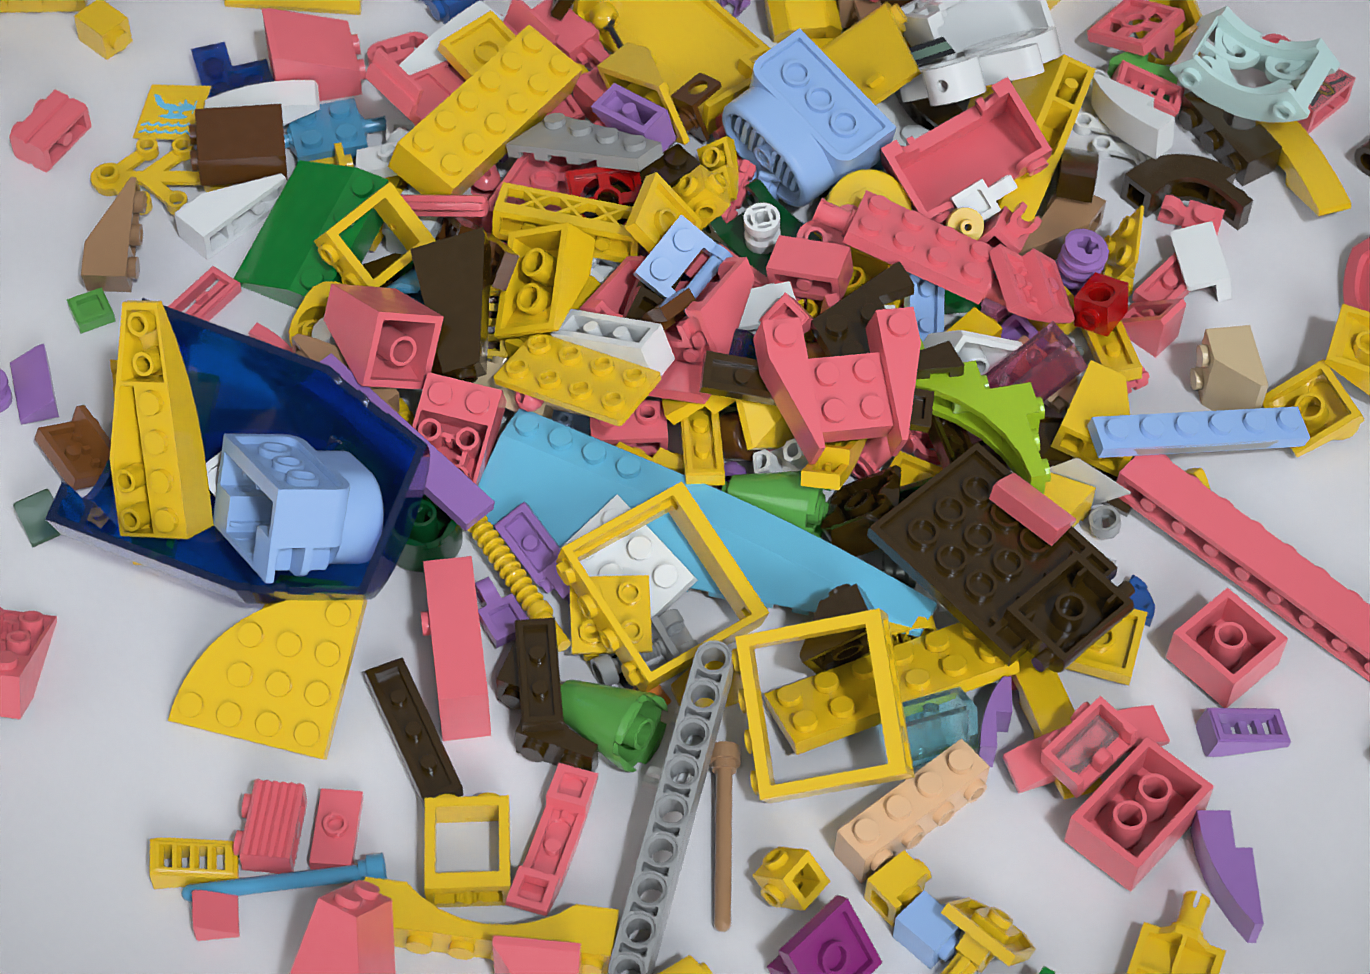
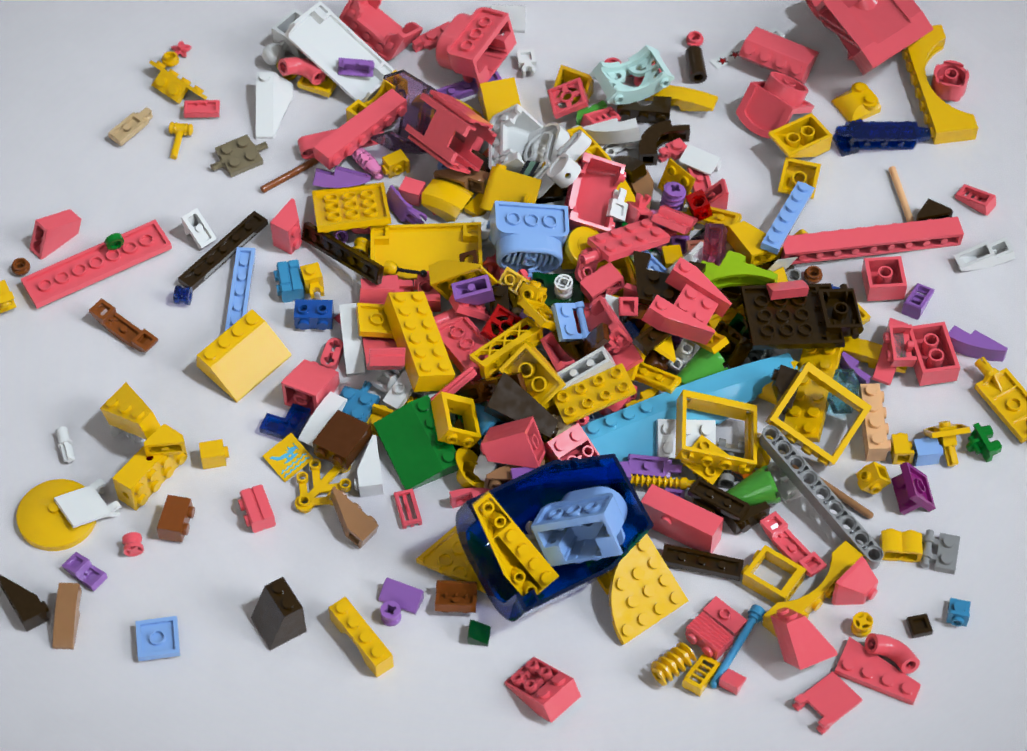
camera: 50 degrees left, 0 degrees up
(91, 310) = (375, 552): bright green tile -> none
(171, 808) = (671, 662): none -> yellow piece
(585, 142) = (458, 320): light grey wing -> none
(964, 215) = (623, 219): yellow tile -> none
(1140, 539) = (816, 272): none -> dark orange plate
(1229, 370) = (767, 190): tan slope -> none

